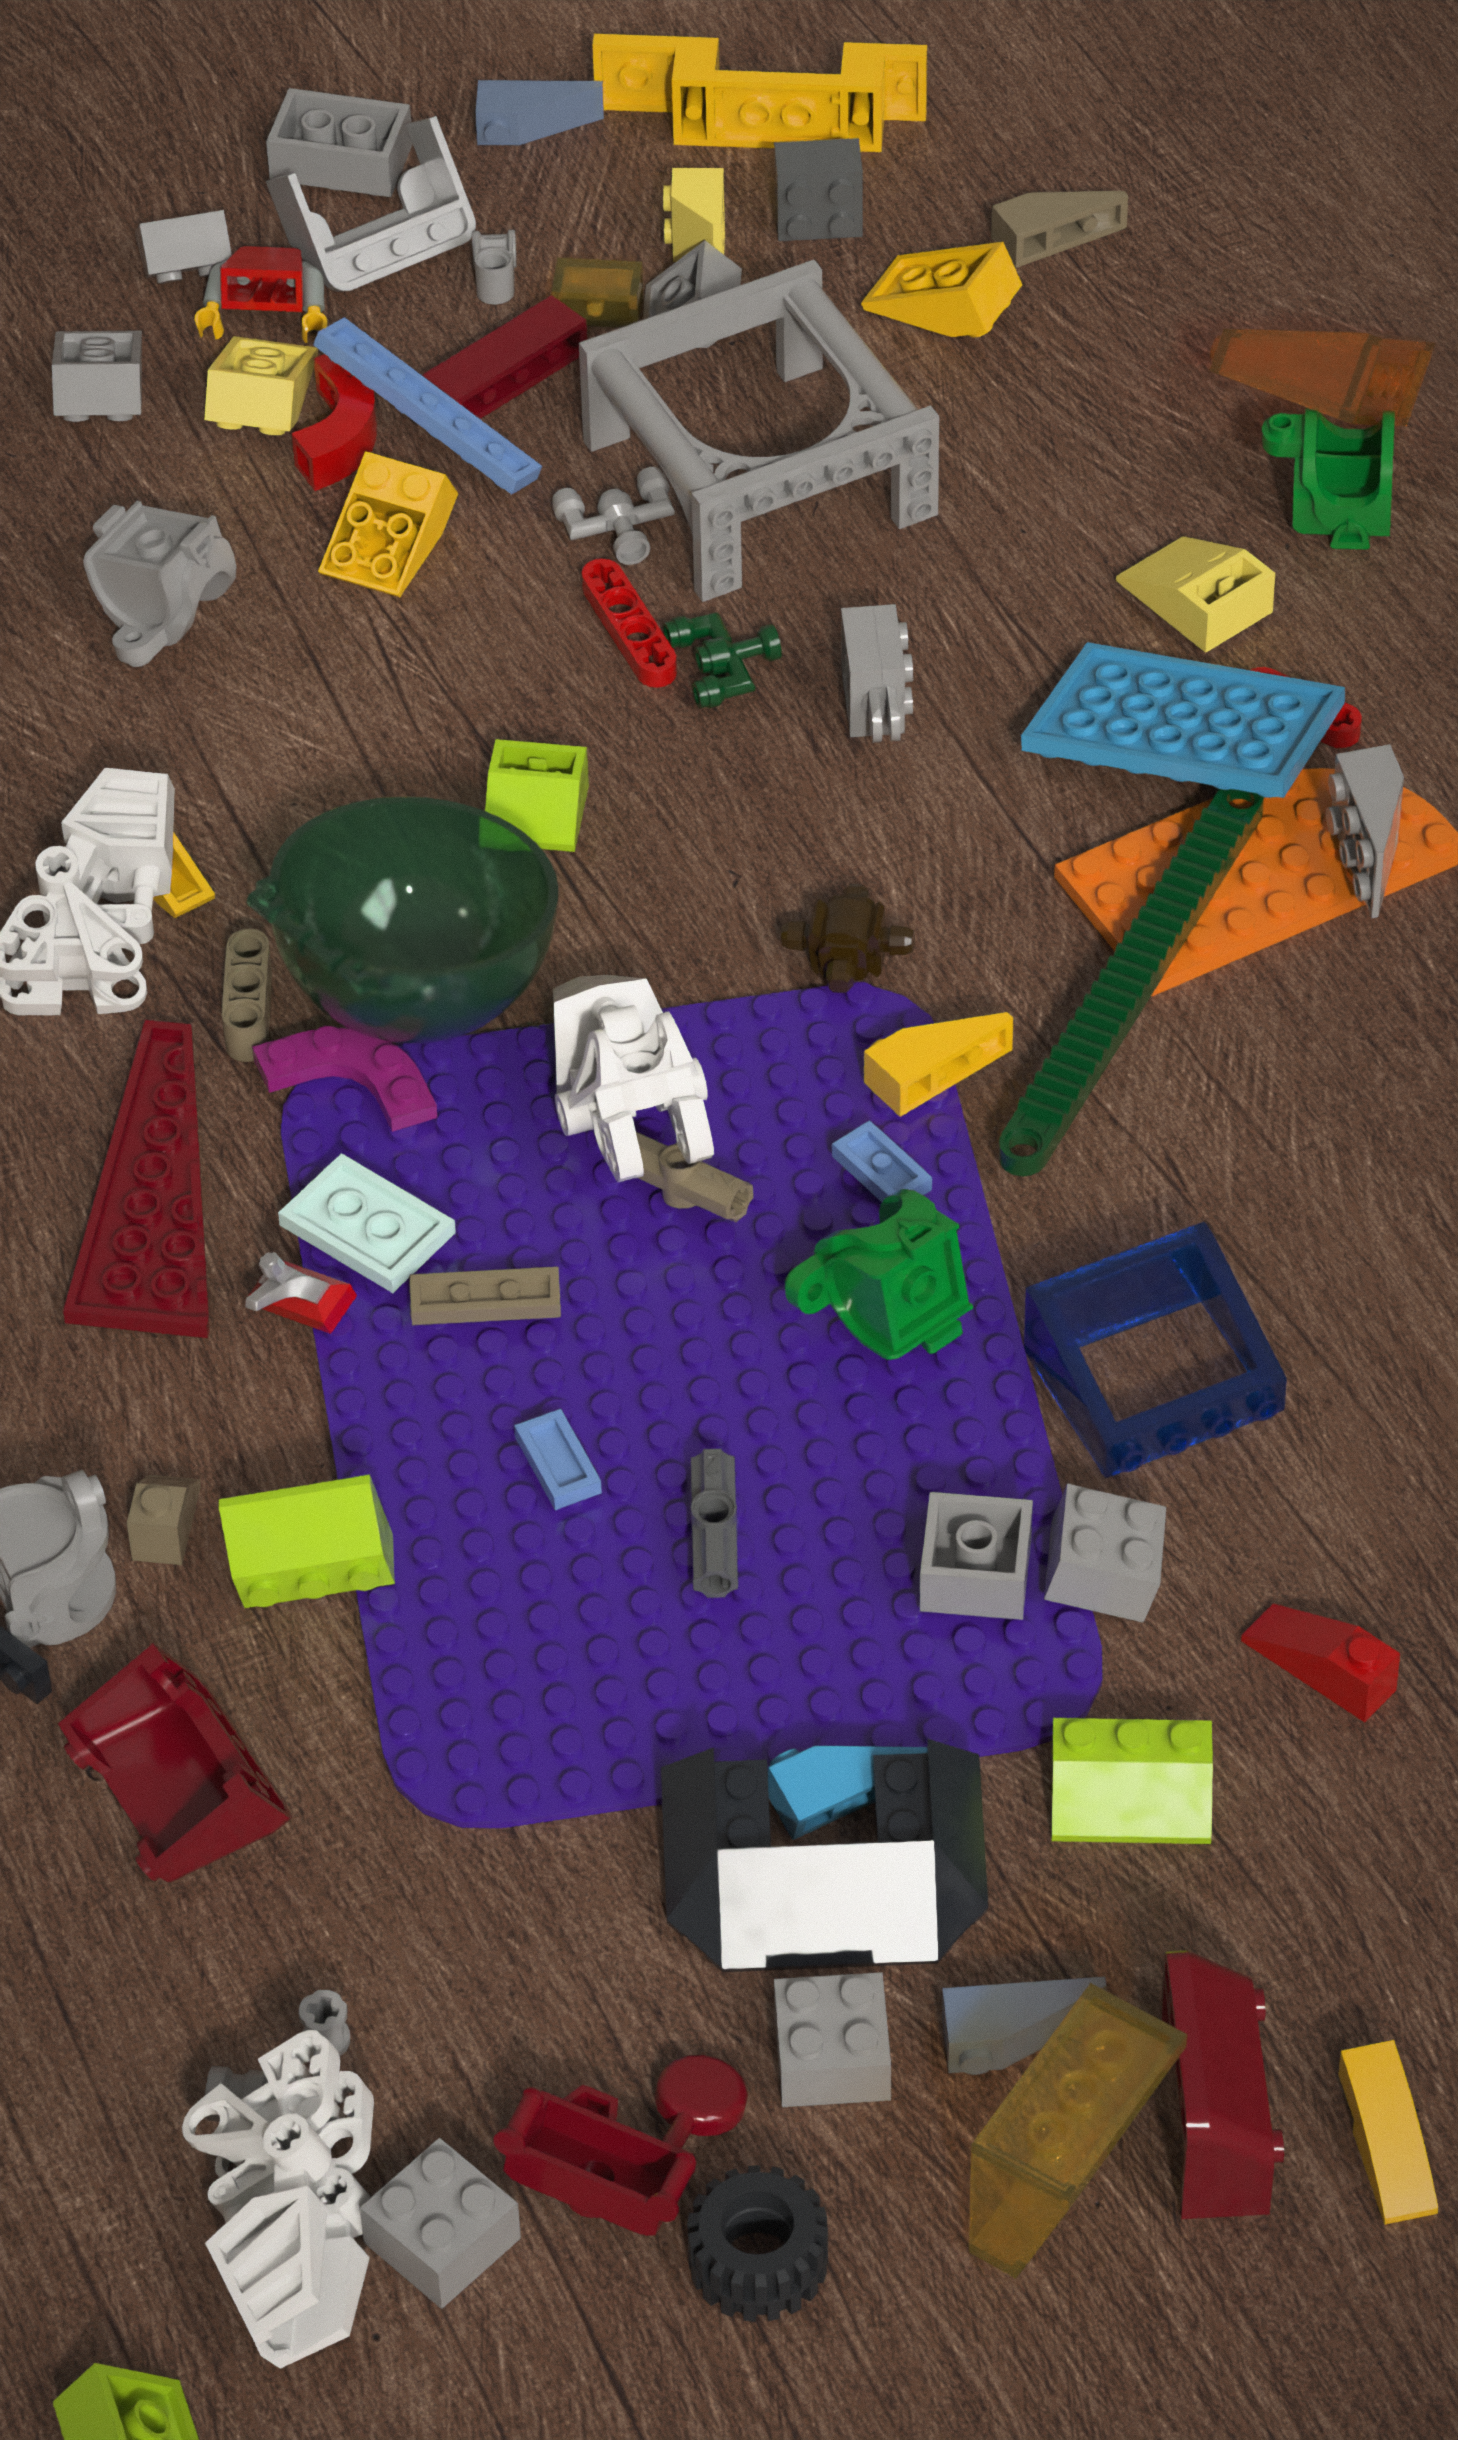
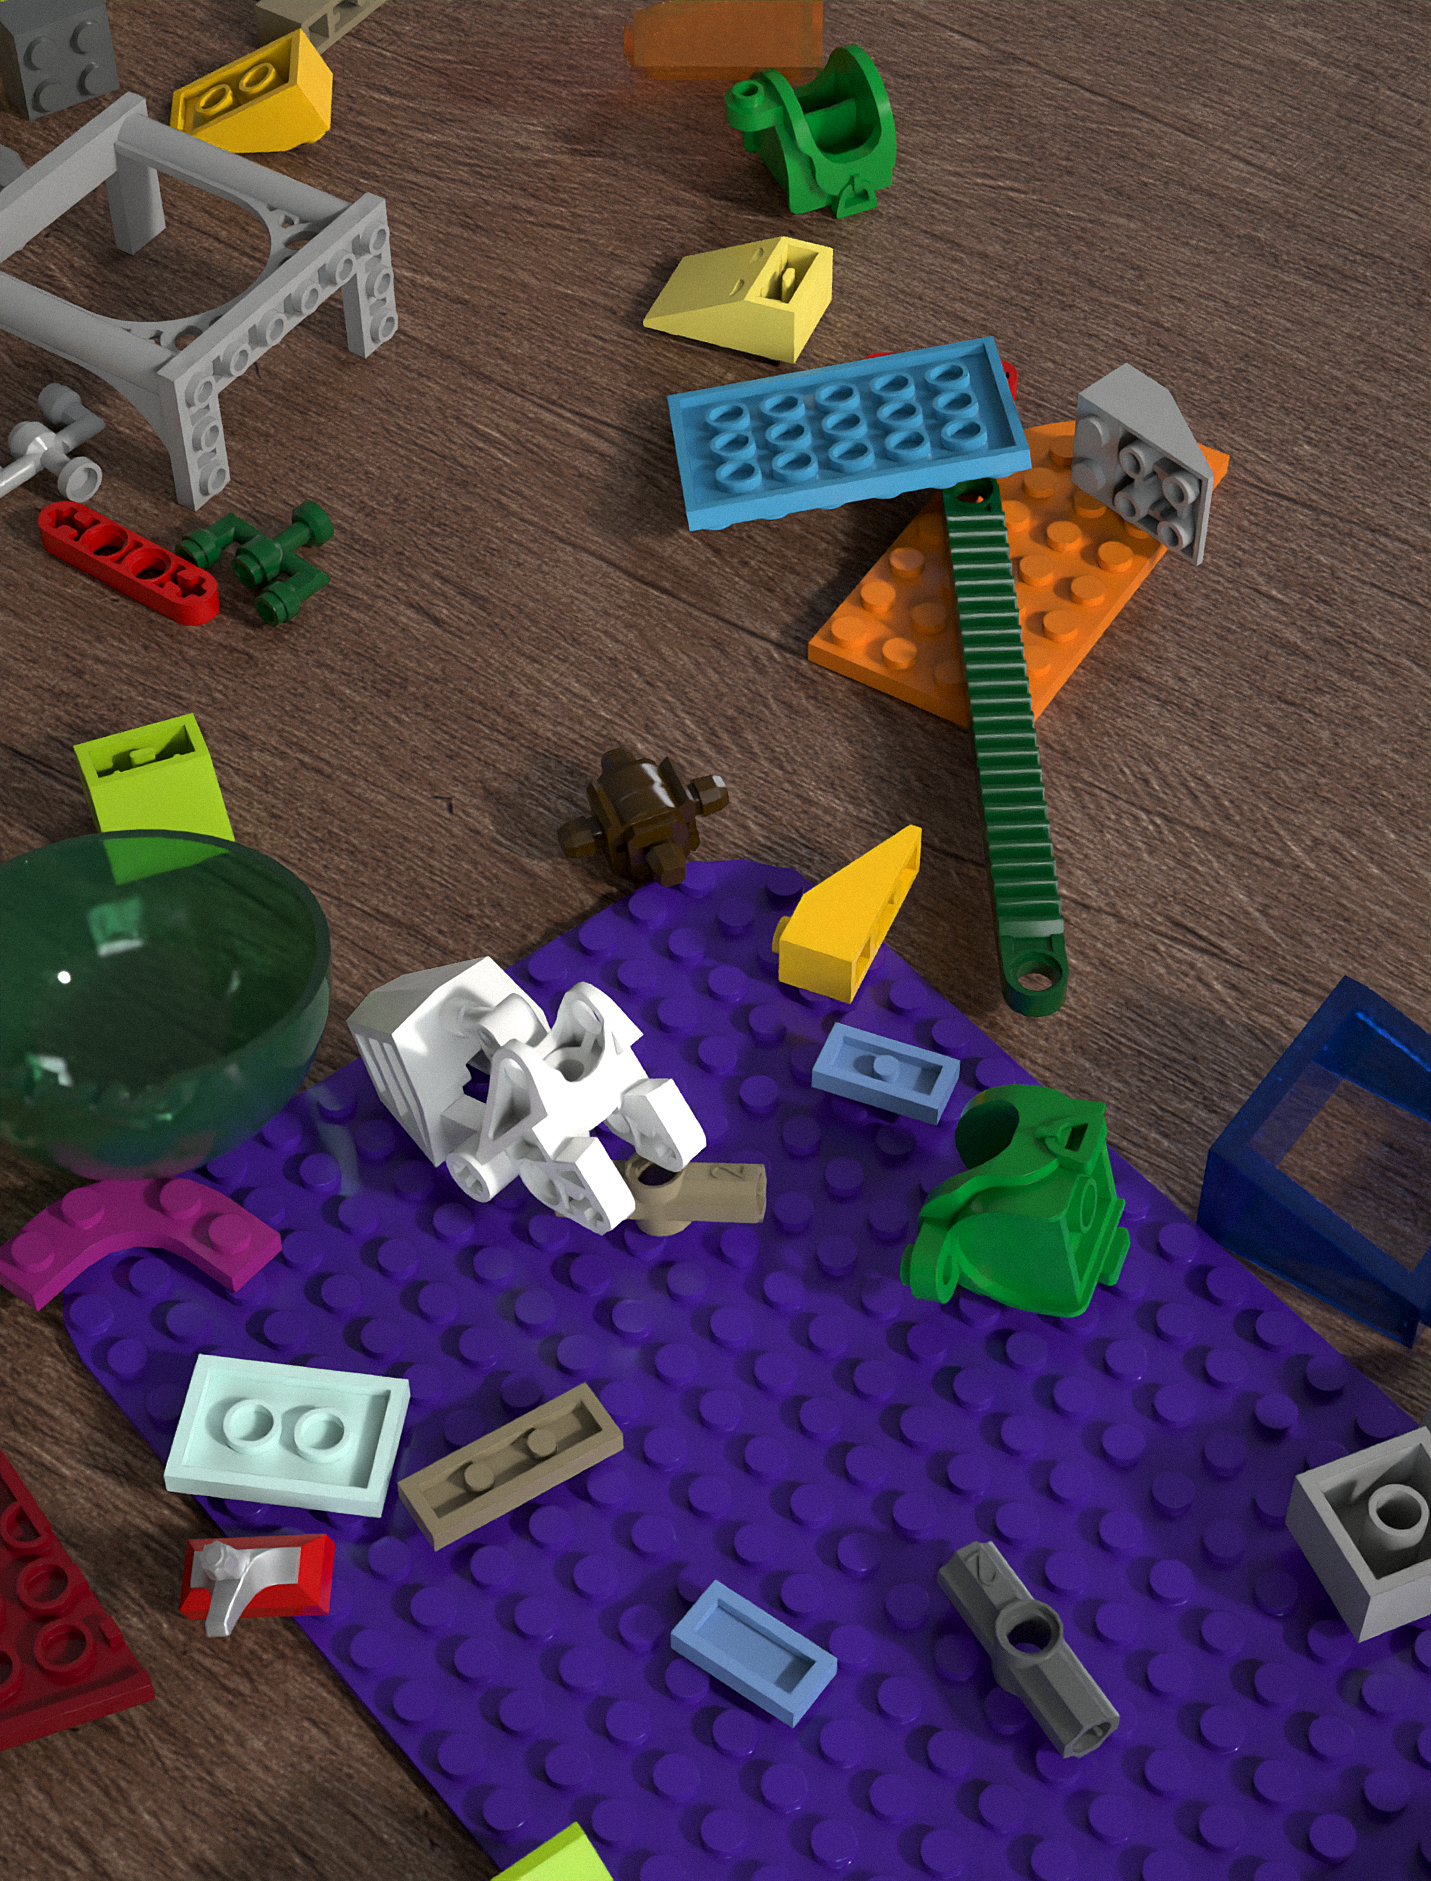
camera: 30 degrees left, 0 degrees up
(875, 671) = (467, 508): light grey brick -> none

